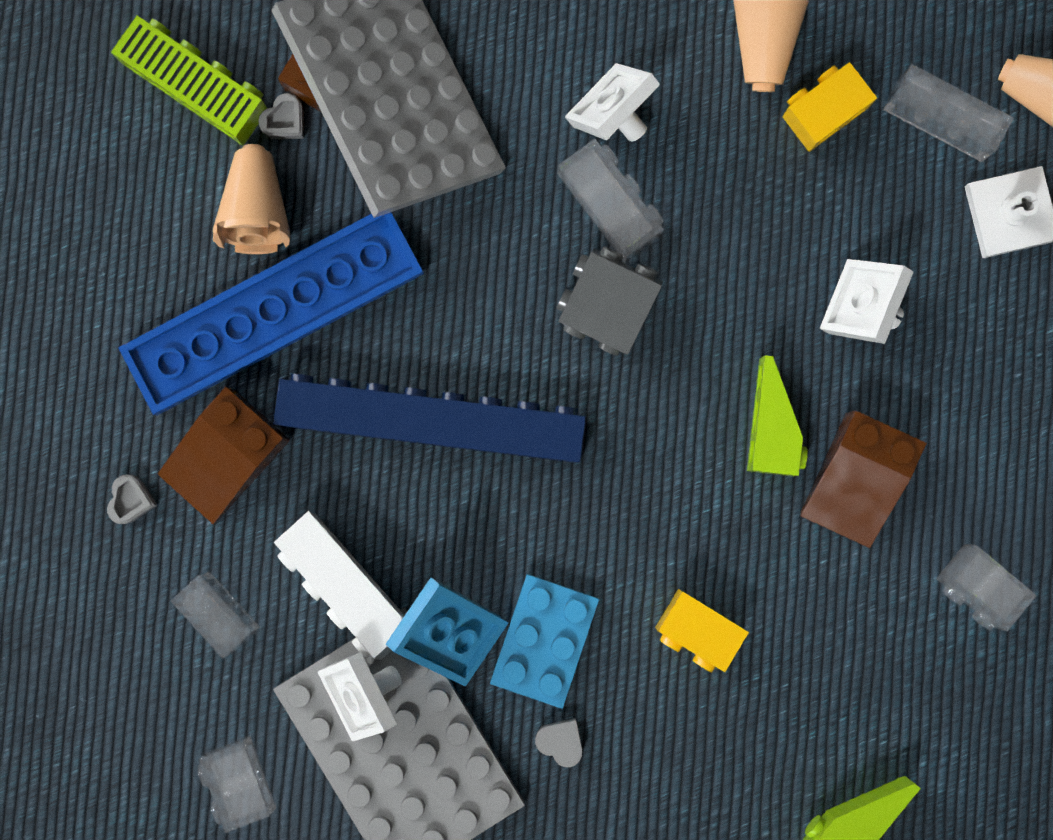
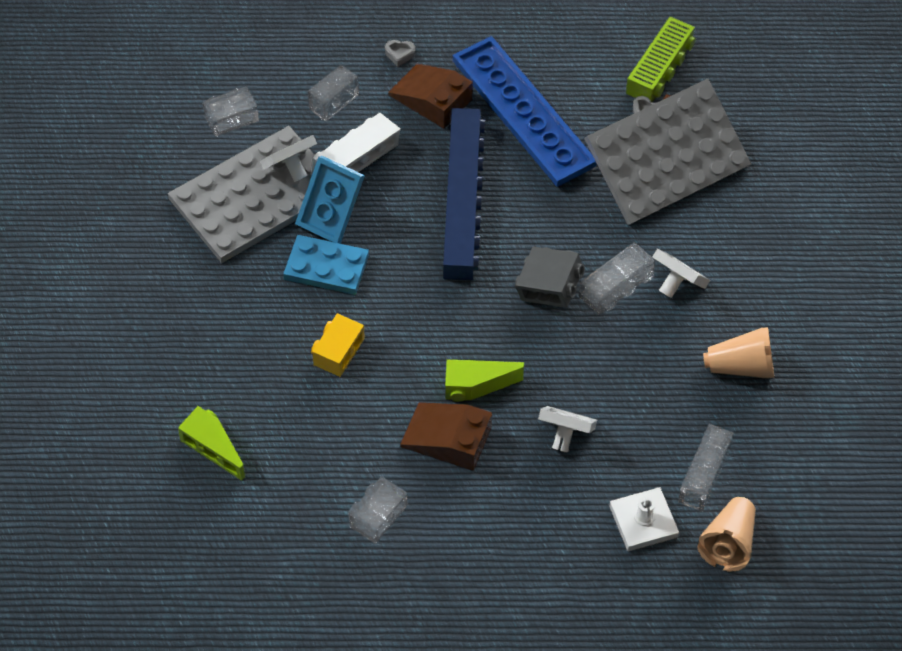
camera: 80 degrees right, 30 degrees down
(252, 205) = (587, 91): light nougat cone -> none
(560, 741) = (261, 277): light grey tile -> none
(829, 106) = (699, 398): yellow brick -> none

